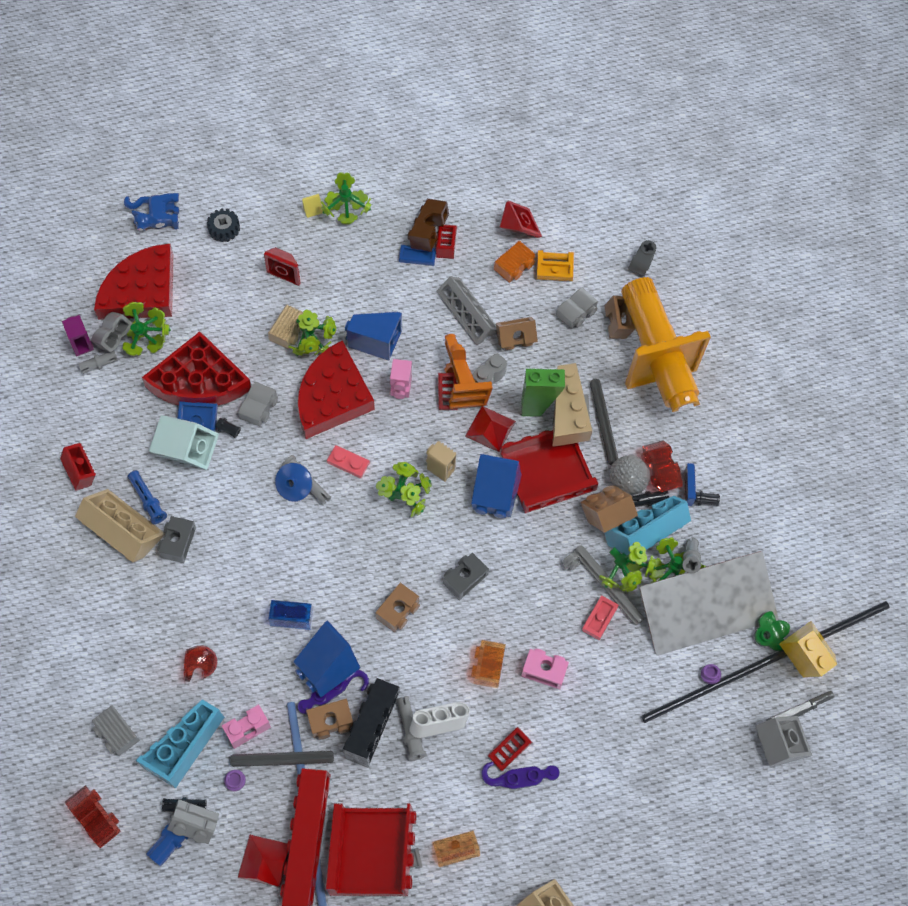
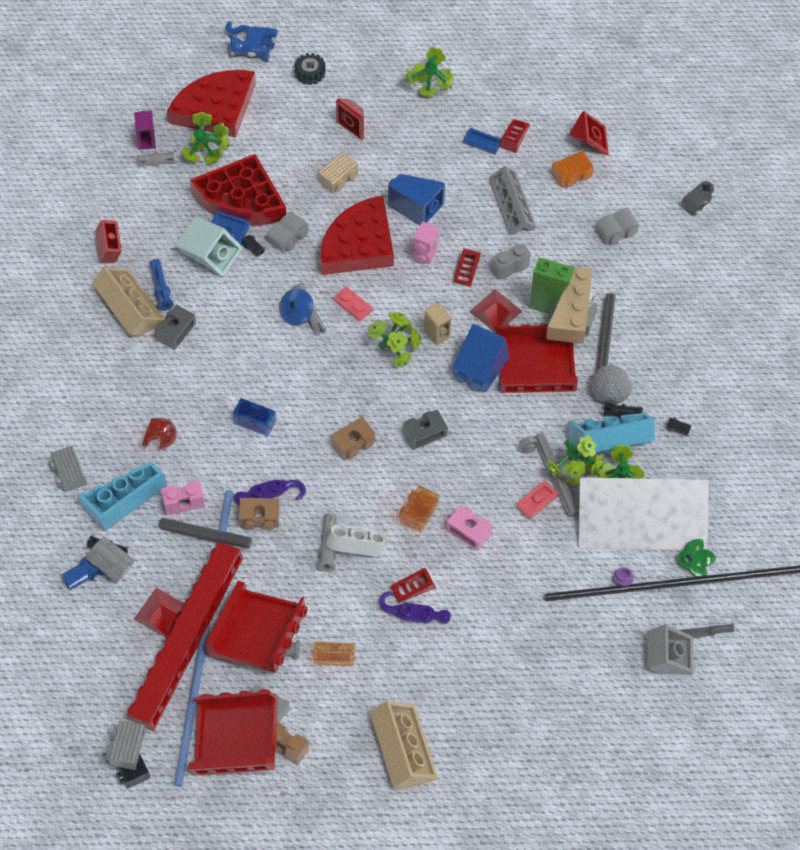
camera: 20 degrees right, 5 degrees down
(93, 816) = (26, 530): clear red brick -> none
(112, 329) = (173, 138): light grey brick -> none
(234, 780) = (158, 540): medium lavender plate -> none
(308, 324) = (351, 189): lime plant -> none
(312, 205) = (398, 71): light yellow slope -> none
(326, 660) = (272, 461): blue slope -> none
(371, 722) = (293, 526): black wedge -> none
(423, 233) = (493, 121): reddish brown arch -> none
(466, 391) = (482, 270): orange piece -> none
(506, 330) = (561, 230): medium nougat brick -> none
(555, 269) = (608, 186): light orange plate -> none
(609, 508) = (578, 406): medium nougat brick -> none
(615, 311) = (654, 235): medium nougat brick -> none
(662, 354) = (680, 285): light orange piece -> none
(664, 470) = (645, 385): clear red brick -> none
(690, 487) = (666, 409): blue tile -> none
(692, 557) = (641, 467): light grey pin -> none
(809, 652) = (723, 580): yellow slope -> none

